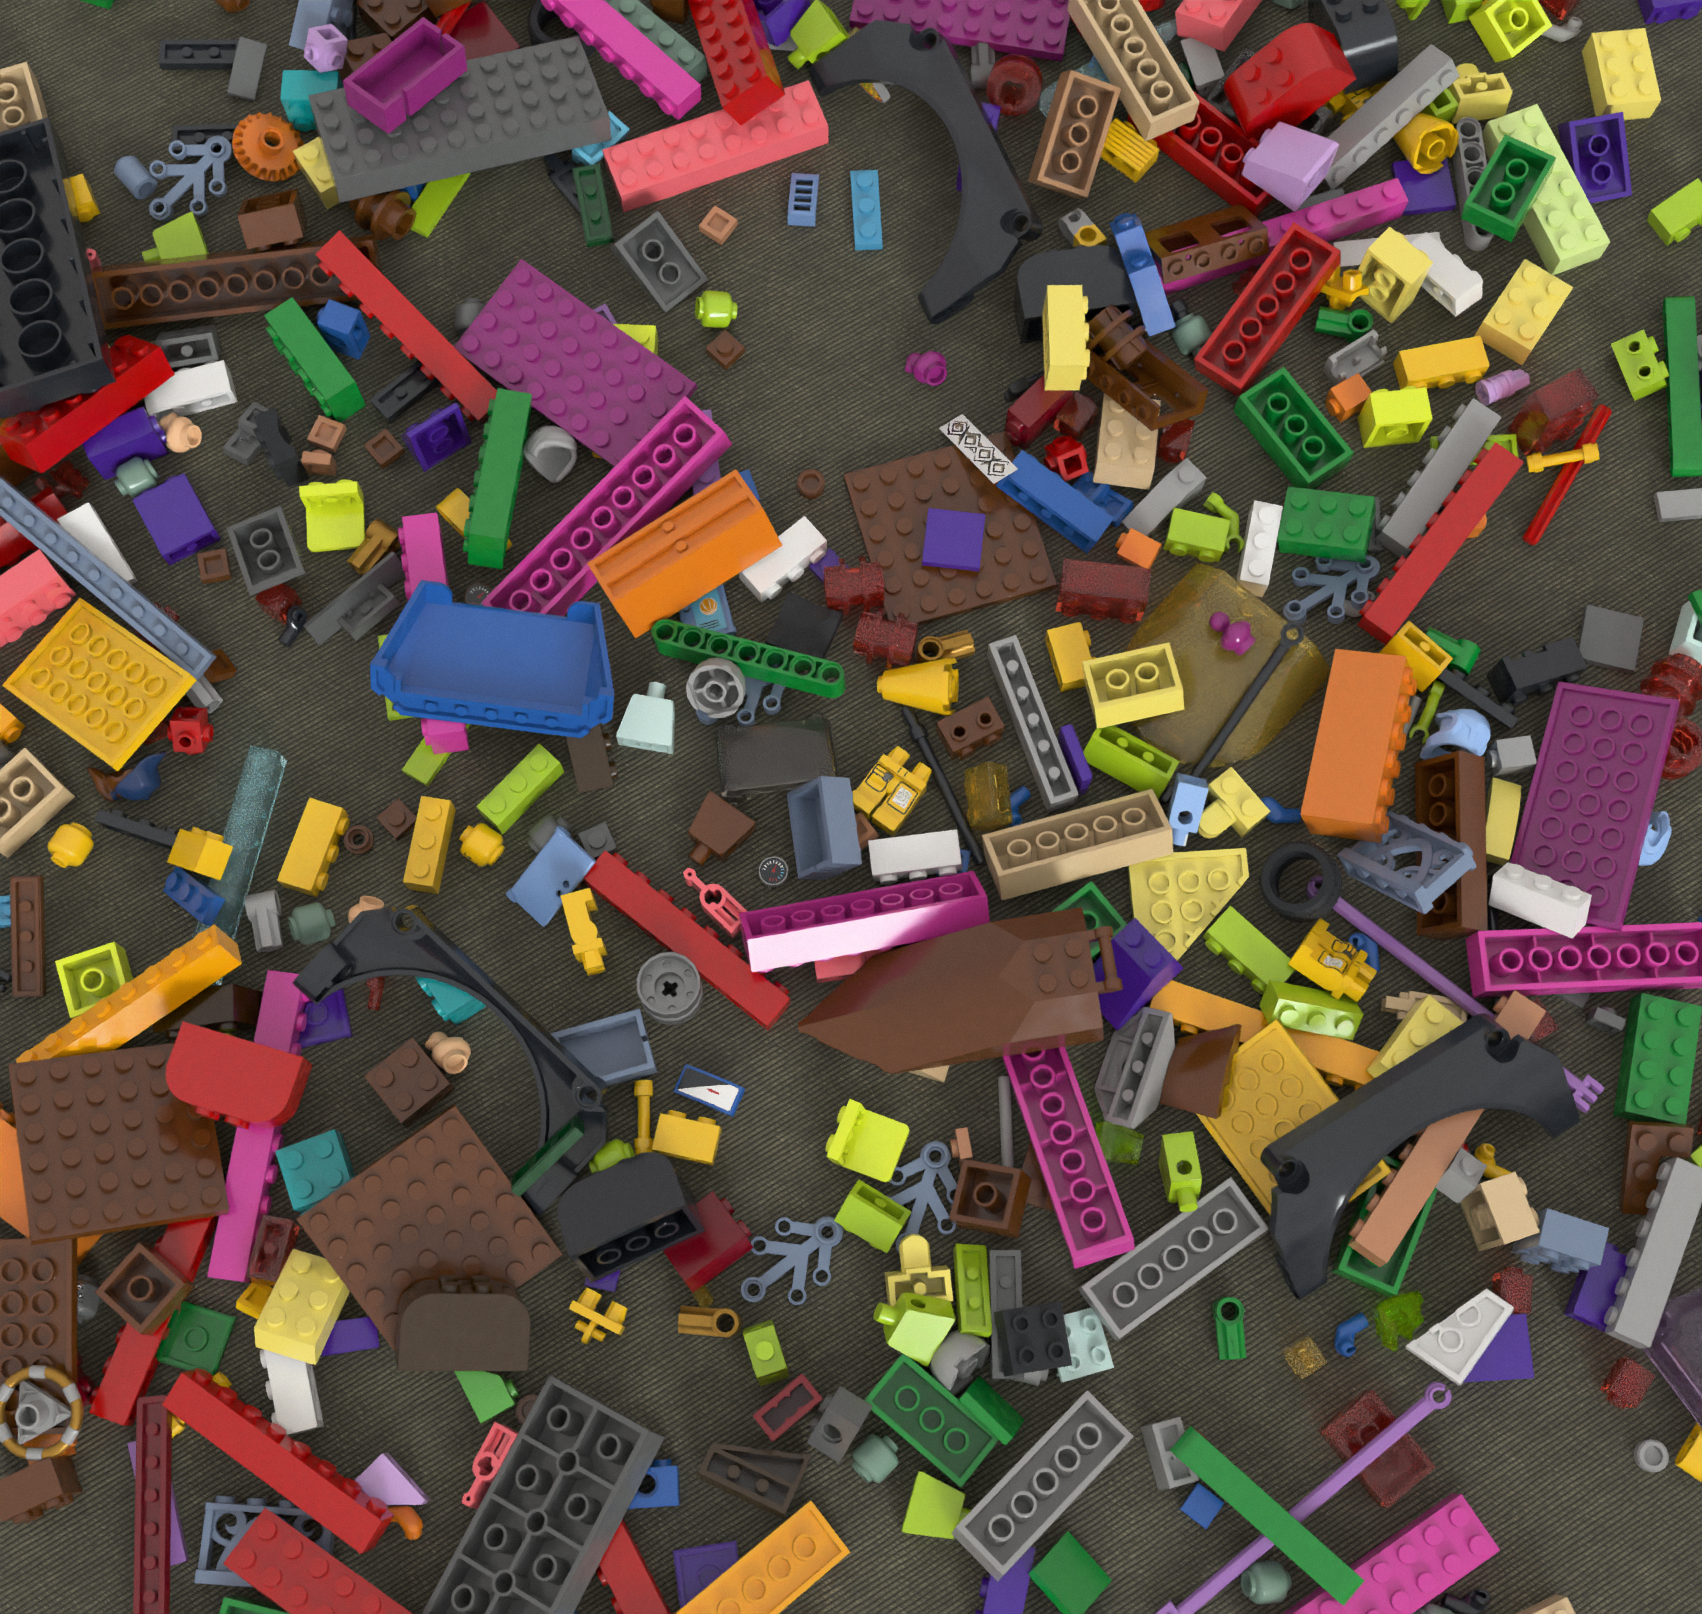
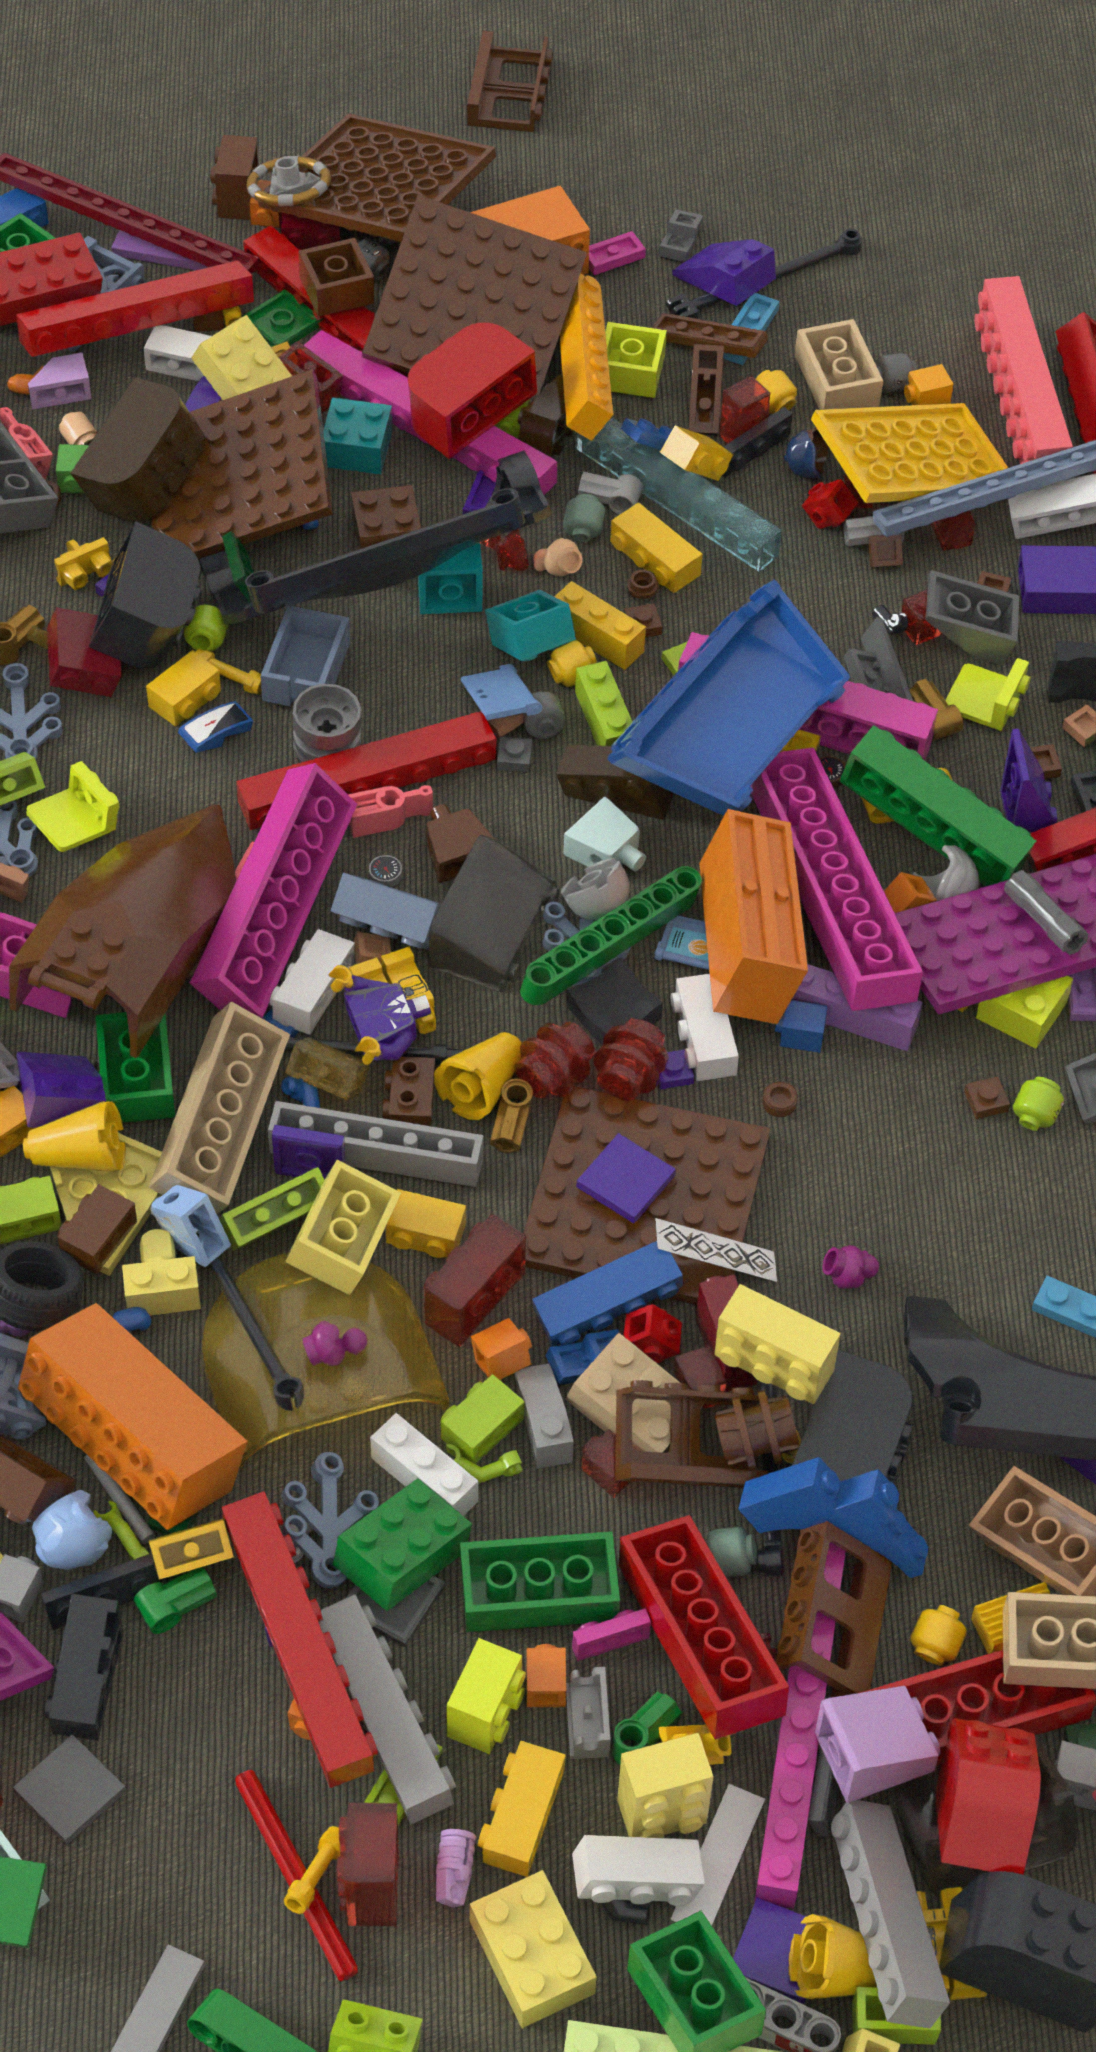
camera: 120 degrees right, 20 degrees down
(97, 904) = (706, 389): none -> reddish brown slope
(120, 848) = (743, 408): none -> clear red brick
(319, 462) = (1055, 705): nougat plate -> none
(446, 1424) = (77, 429): none -> light nougat brick
(468, 890) = (530, 625): none -> teal brick
(578, 330) = (1042, 908): none -> dark grey axle
(583, 471) = (908, 892): none -> orange brick
(588, 943) = (427, 690): yellow hips -> none
(937, 768) = (379, 1014): none -> dark purple torso
(1080, 229) = (932, 1507): leg -> none
(1168, 188) = (938, 1635): none -> yellow head
(1173, 923) = (79, 1140): none -> yellow cone
(1229, 867) = (97, 1228): none -> reddish brown brick
(1307, 381) = (622, 1630): none -> dark pink plate

